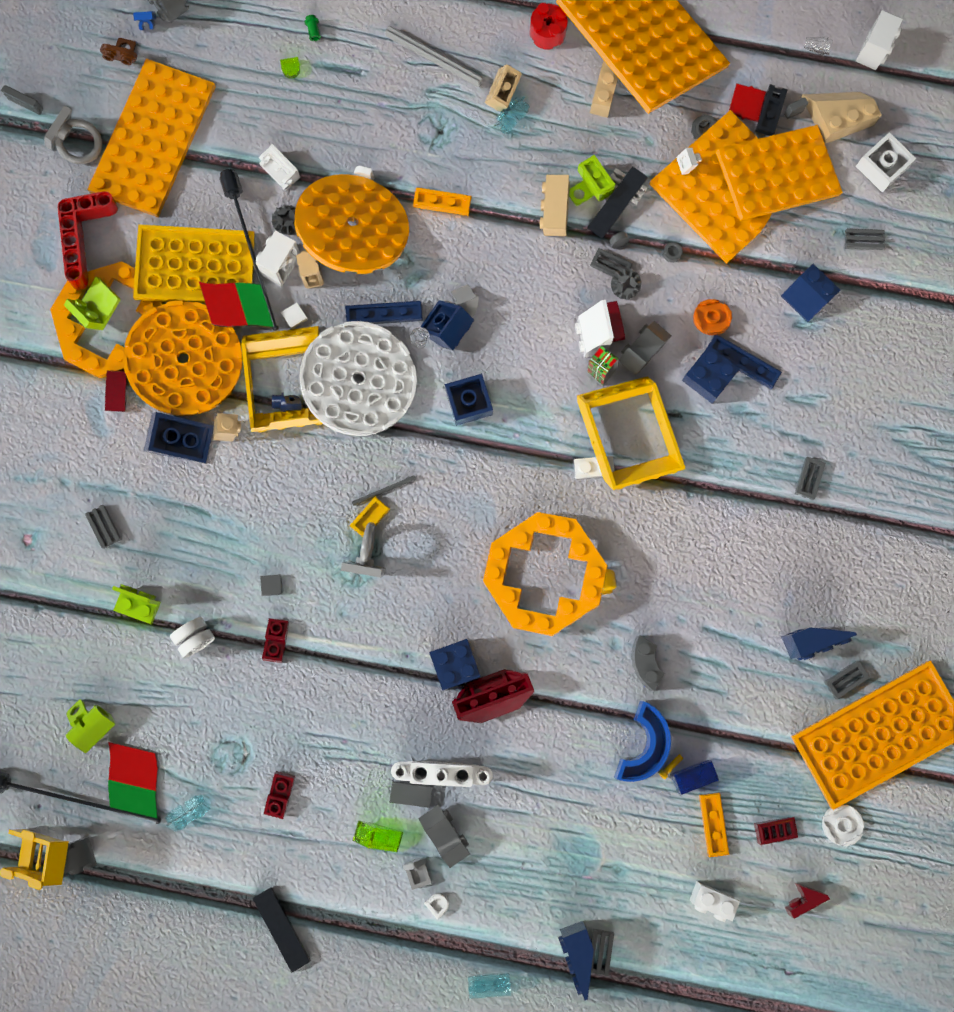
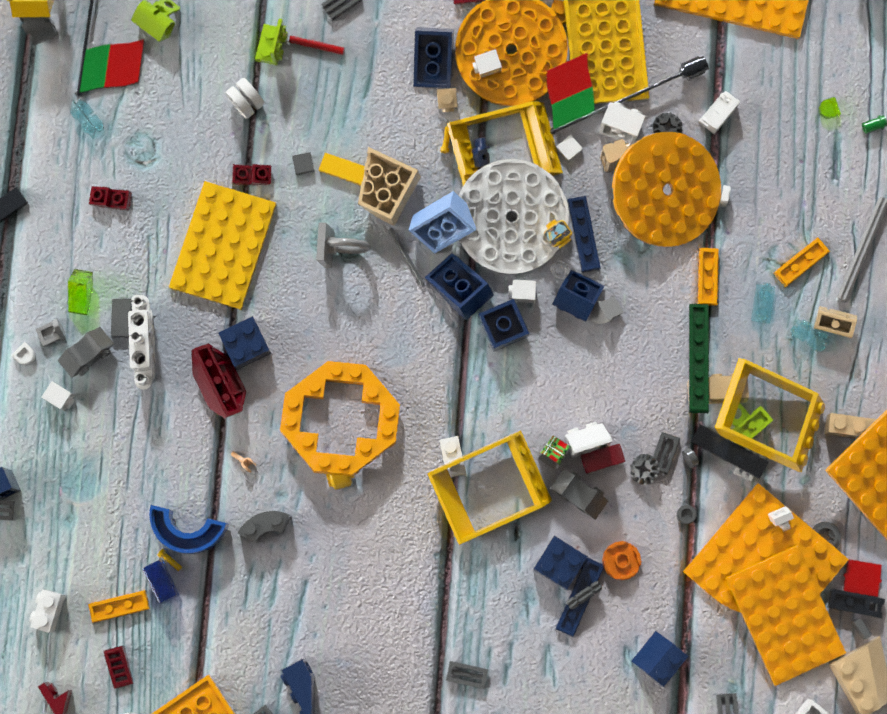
camera: 90 degrees right, 0 degrees up
(145, 558) = (317, 45): none -> red bar
(195, 381) = (487, 63): none -> white brick
(277, 438) = (444, 149): none -> yellow piece
(285, 539) = (342, 169): none -> yellow tile
(308, 500) = (386, 186): none -> tan wedge
(346, 678) = (222, 245): none -> yellow plate
(356, 445) = (442, 222): none -> light blue slope
(373, 512) = (380, 247): yellow tile -> none
(383, 332) = (558, 233): none -> head
(421, 439) = (459, 286): none -> dark blue slope
(435, 377) = (522, 291): none -> white brick
(439, 113) = (801, 262): none -> light orange tile
(475, 154) = (763, 303): none -> clear light blue hinge
(488, 870) = (58, 396): none -> white brick
(524, 217) = (699, 358): none -> dark green tile
(540, 169) = (732, 402): none -> yellow window
(578, 677) = (245, 461): none -> light nougat hand
(744, 355) = (584, 595): none -> dark grey axle

